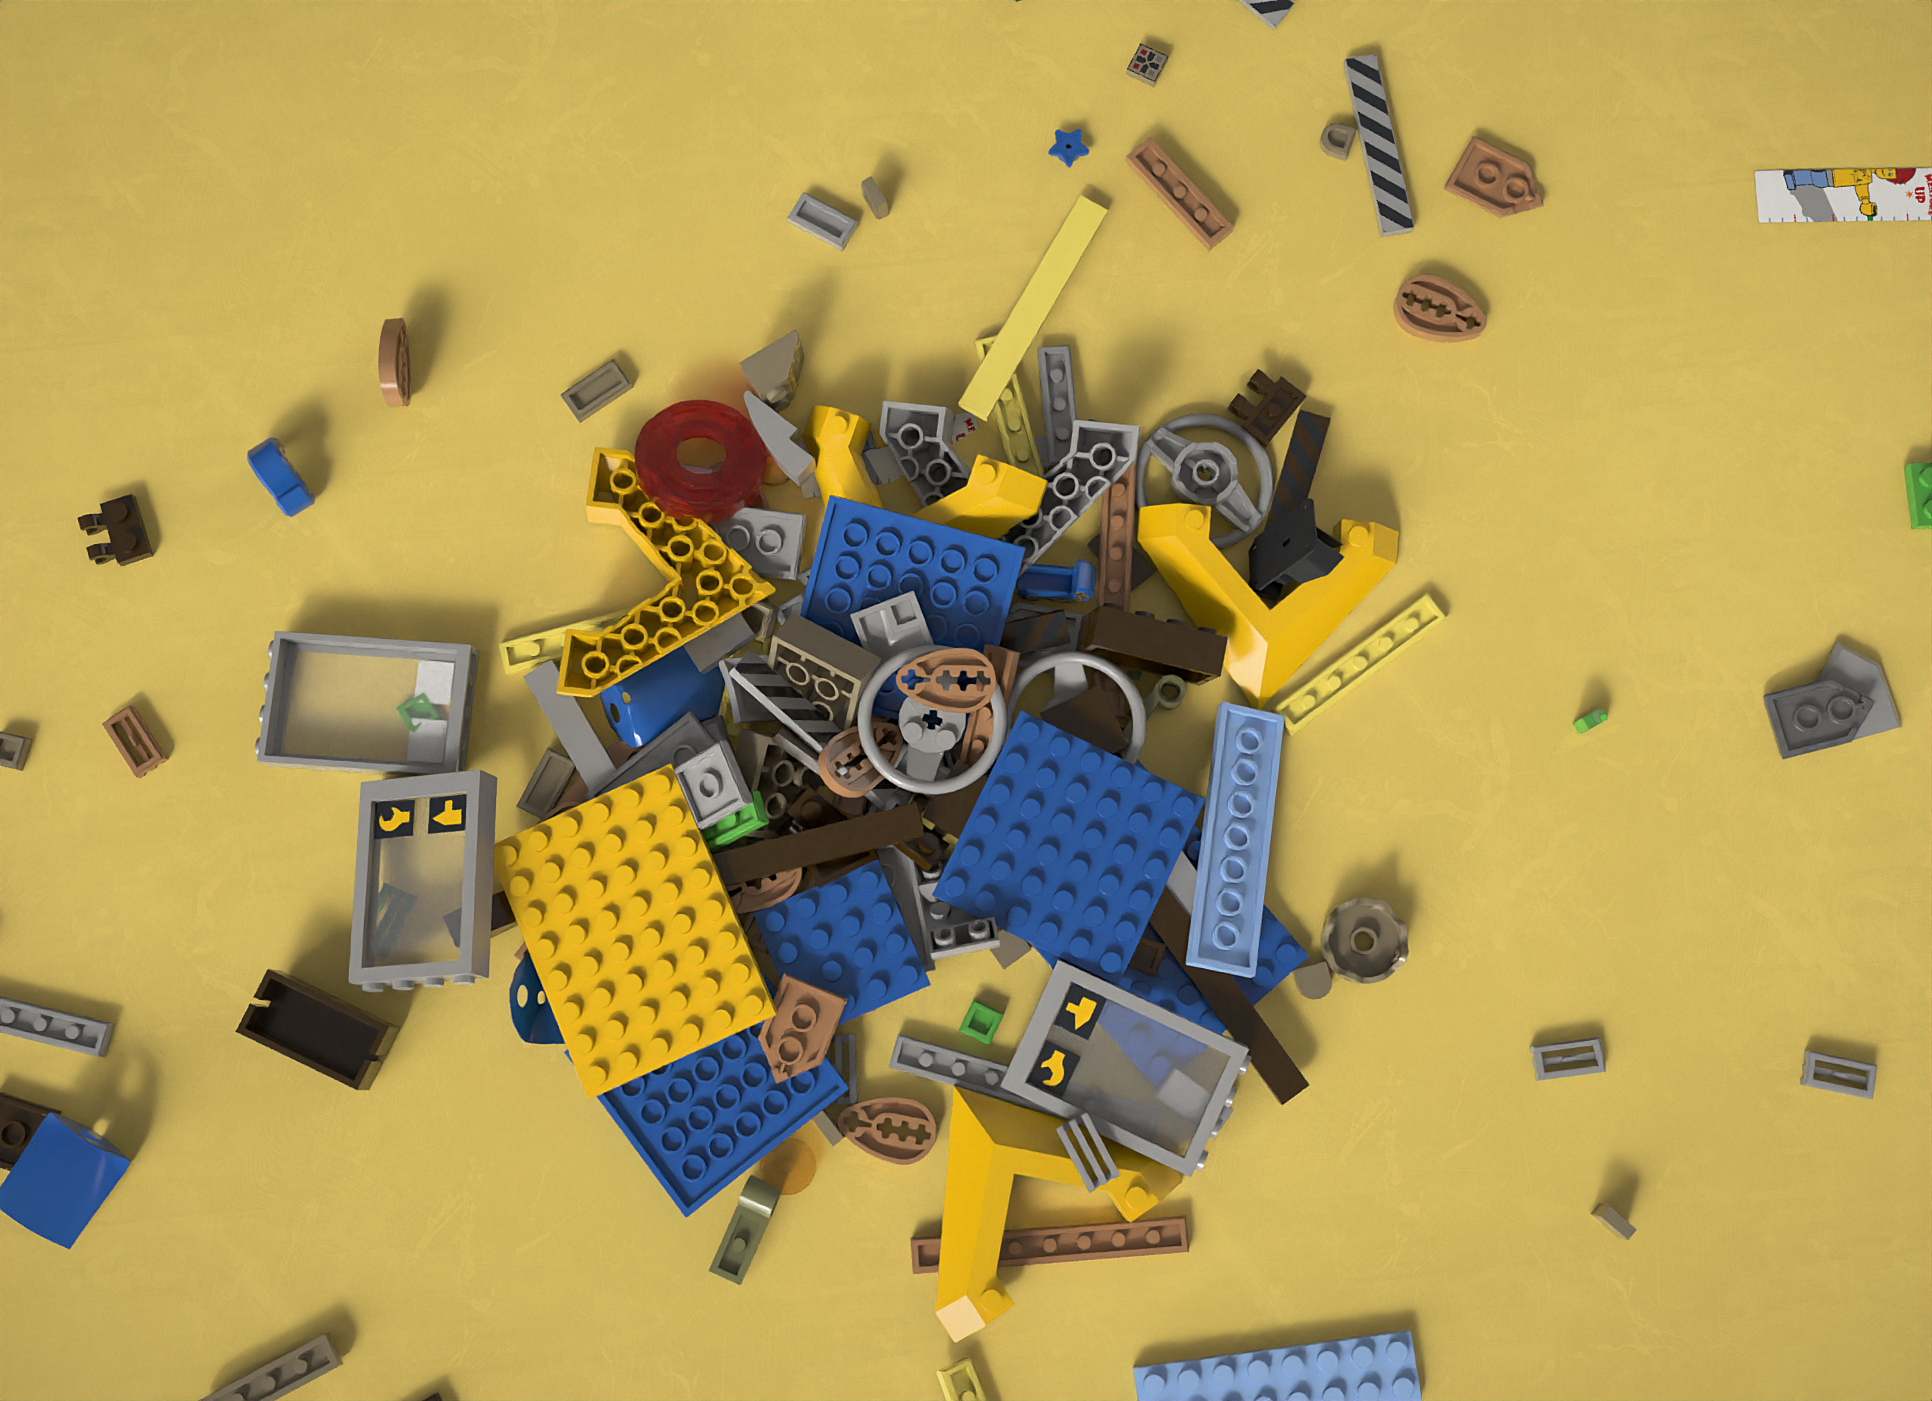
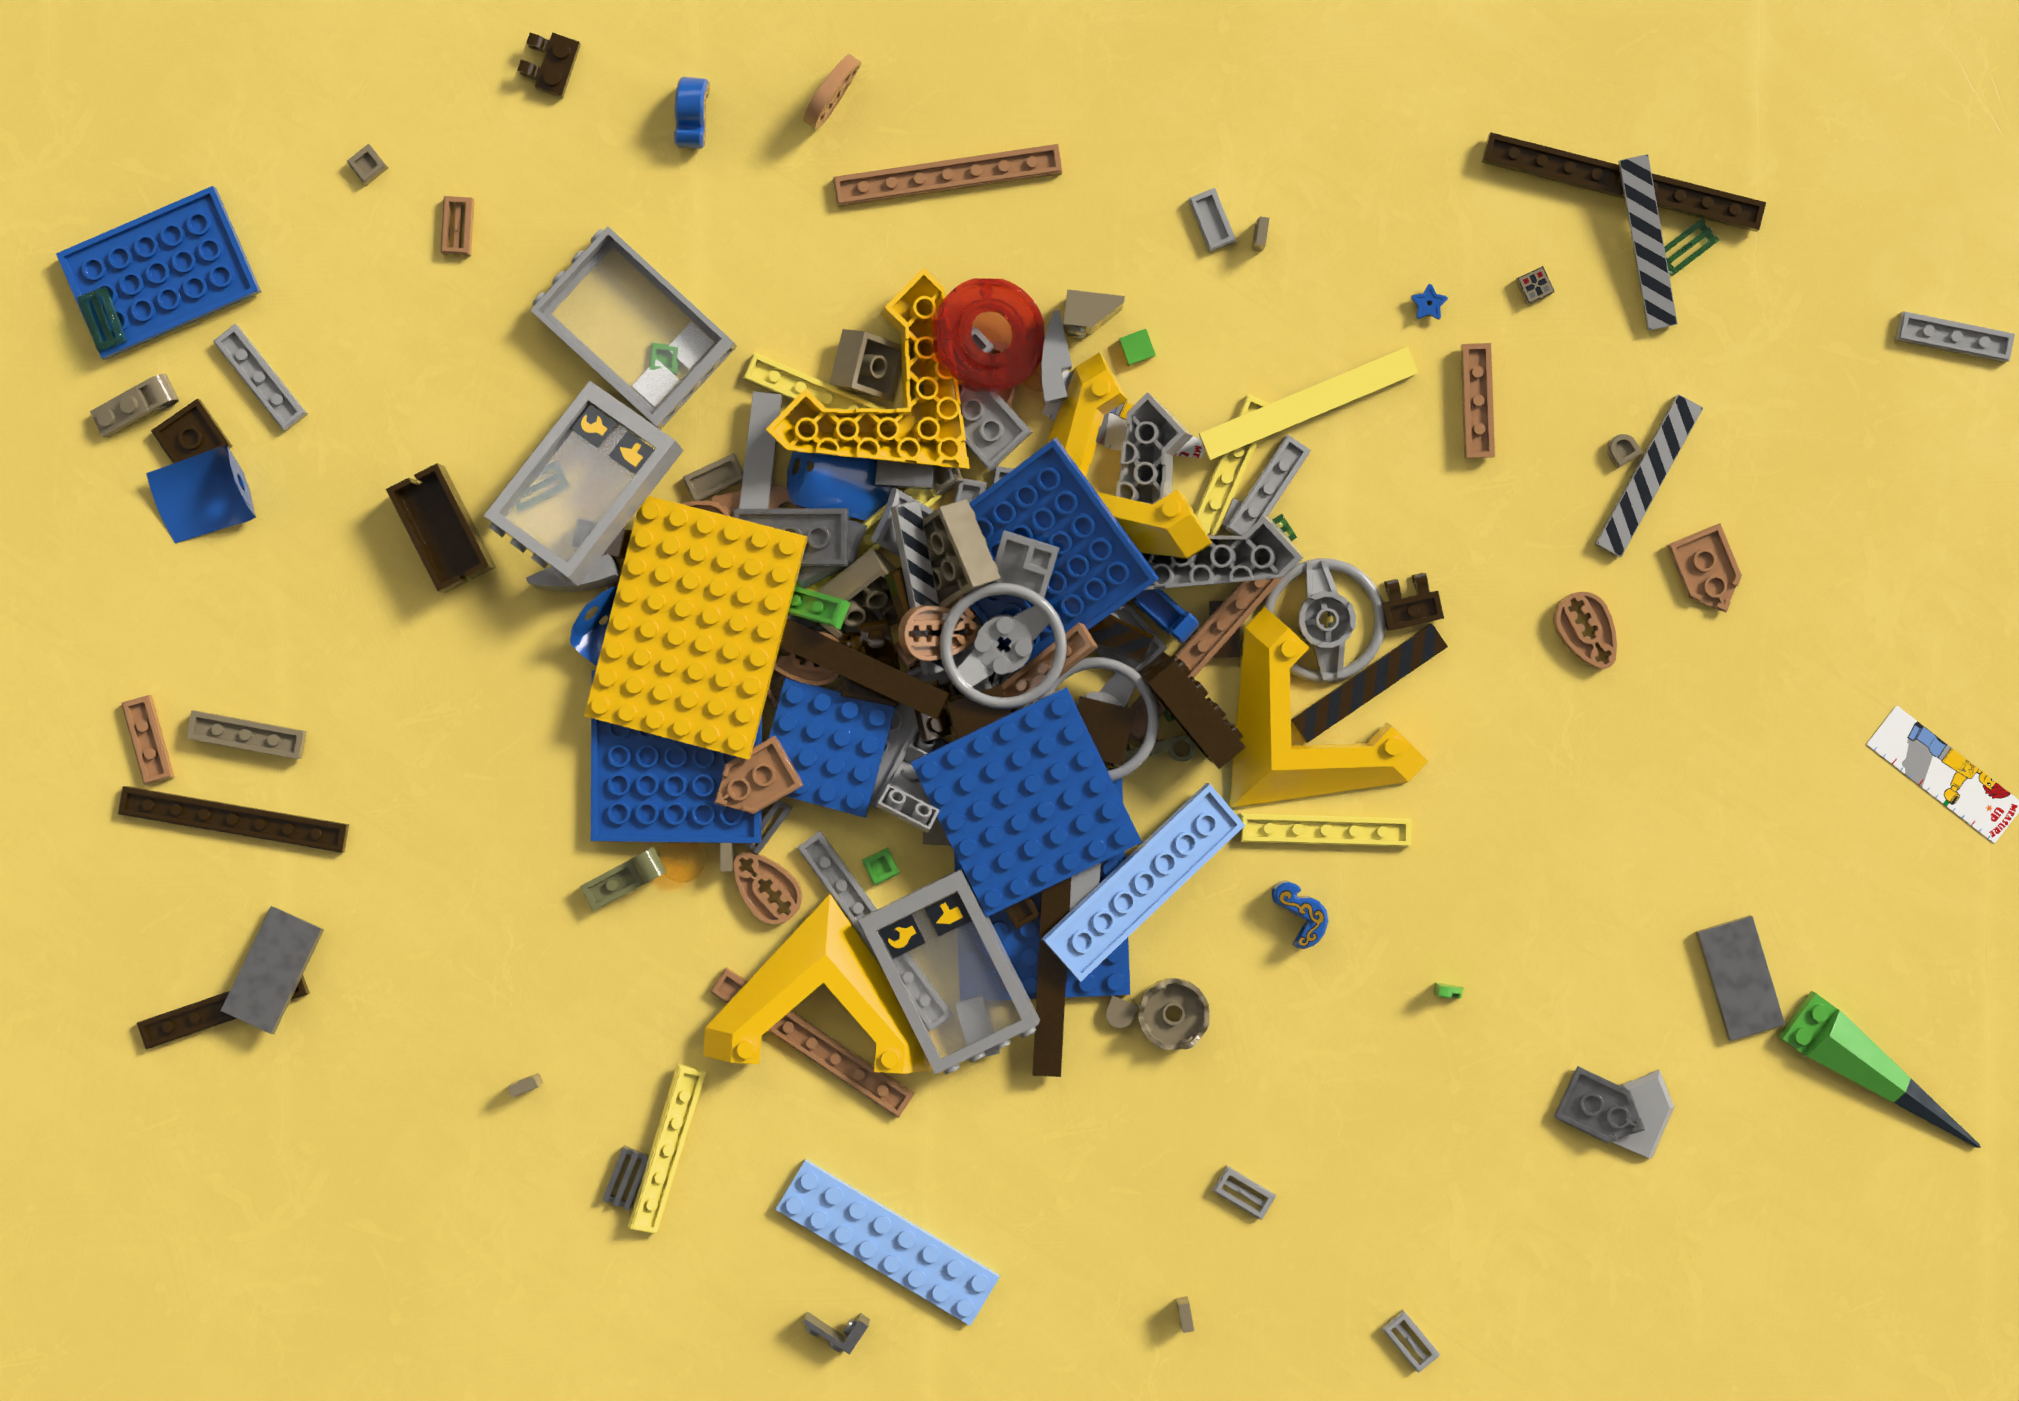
camera: 30 degrees right, 10 degrees up
(505, 954) = (601, 575): none -> light grey slope
(556, 359) = (947, 175): none -> medium nougat tile
(596, 391) = (957, 221): dark tan tile -> none
(610, 574) = (867, 365): none -> dark tan slope
(713, 785) = (822, 574): light grey tile -> none
(843, 376) = (1137, 347): none -> bright green tile
(954, 661) = (1026, 646): medium nougat piece -> none
(1101, 1178) = (885, 982): light grey tile -> none
(1306, 556) = (1341, 733): black piece -> none
(1404, 746) = (1306, 907): none -> blue animal
(1834, 504) = (1740, 978): none -> flat silver tile

